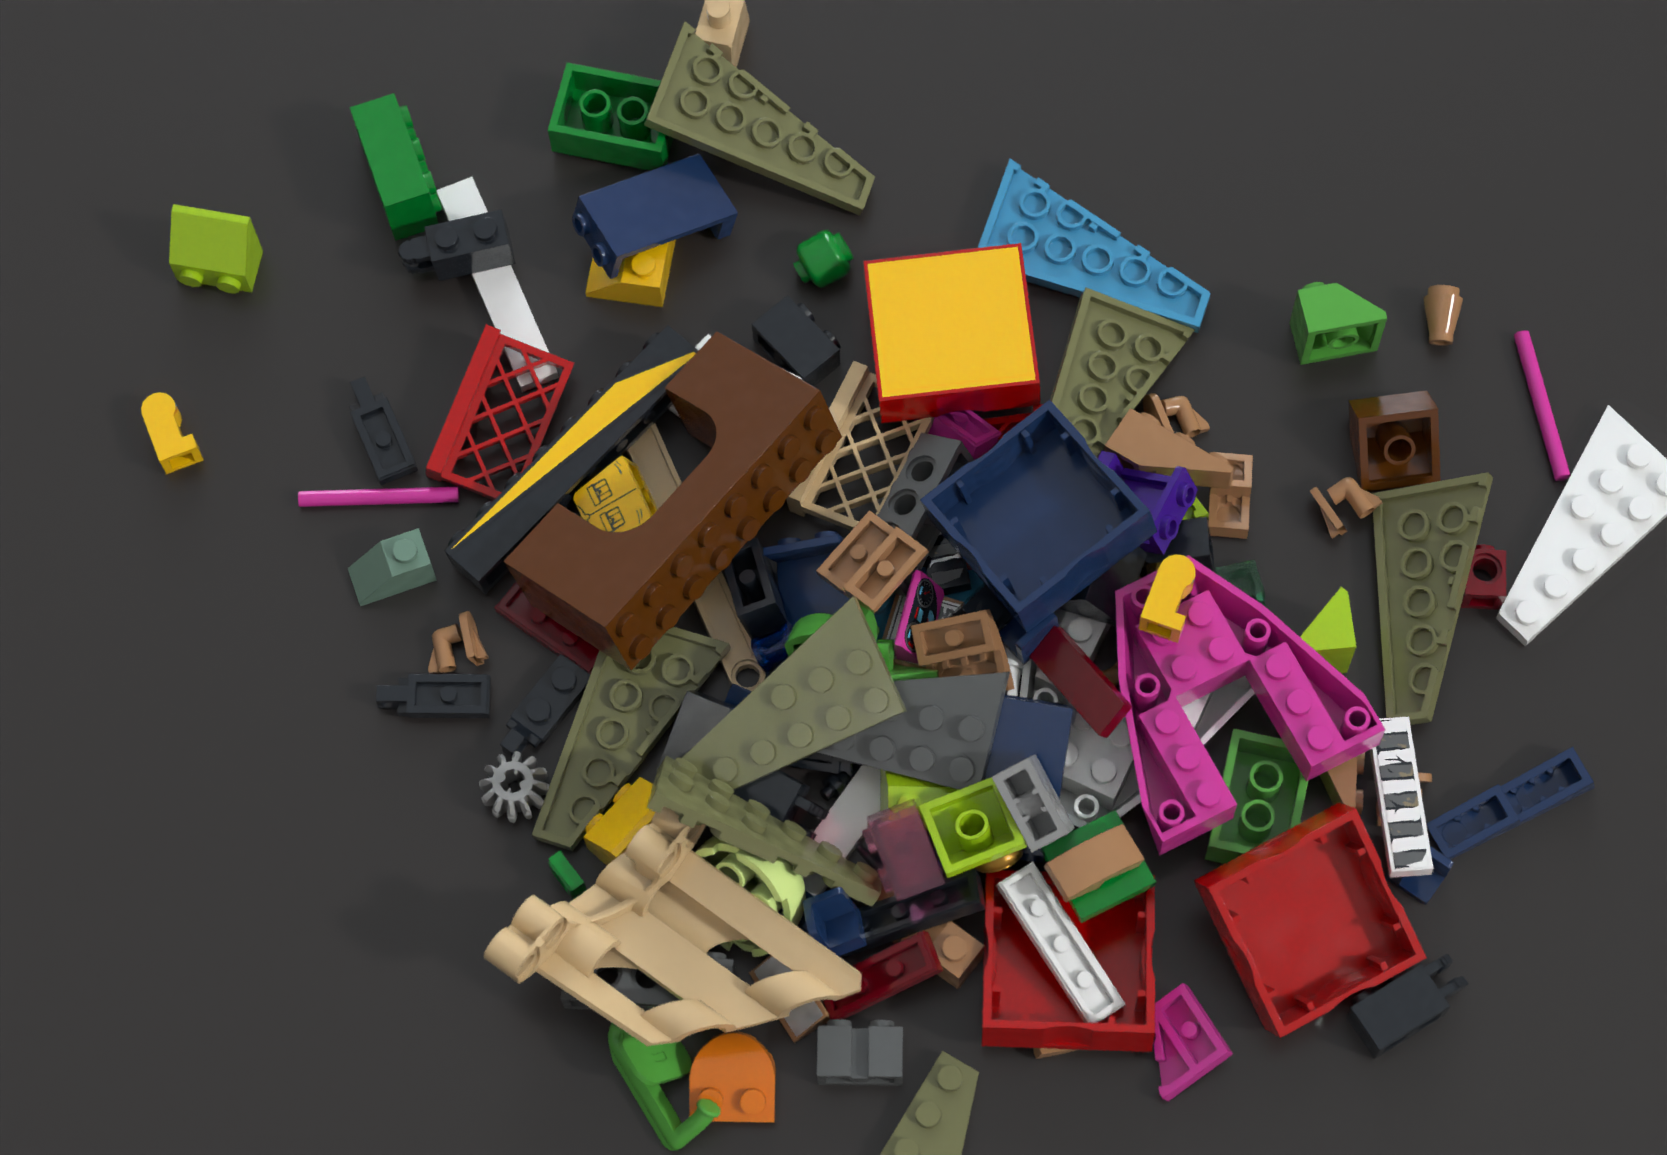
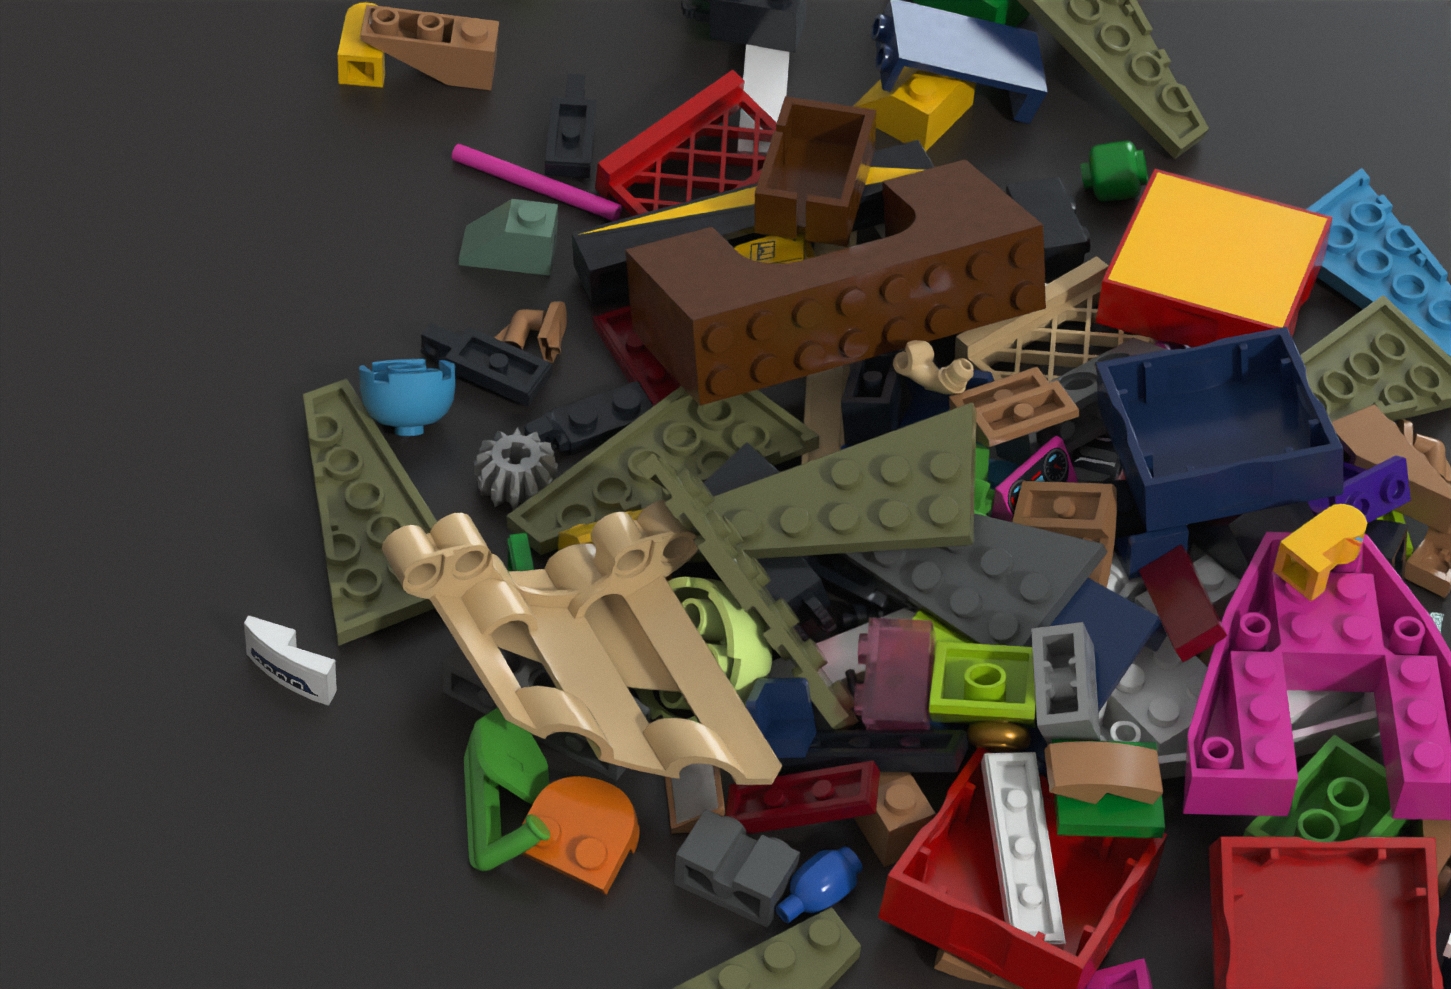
camera: 20 degrees right, 20 degrees down
(228, 408) = (440, 45): none -> medium nougat slope
(396, 761) = (407, 393): none -> dark azure cylinder
(429, 1047) = (276, 653): none -> white slope
(433, 889) = (360, 502): none -> olive wing
(616, 412) = (815, 171): none -> reddish brown piece
(777, 552) = (919, 366): none -> tan piece
(925, 1036) = (820, 883): none -> blue plant

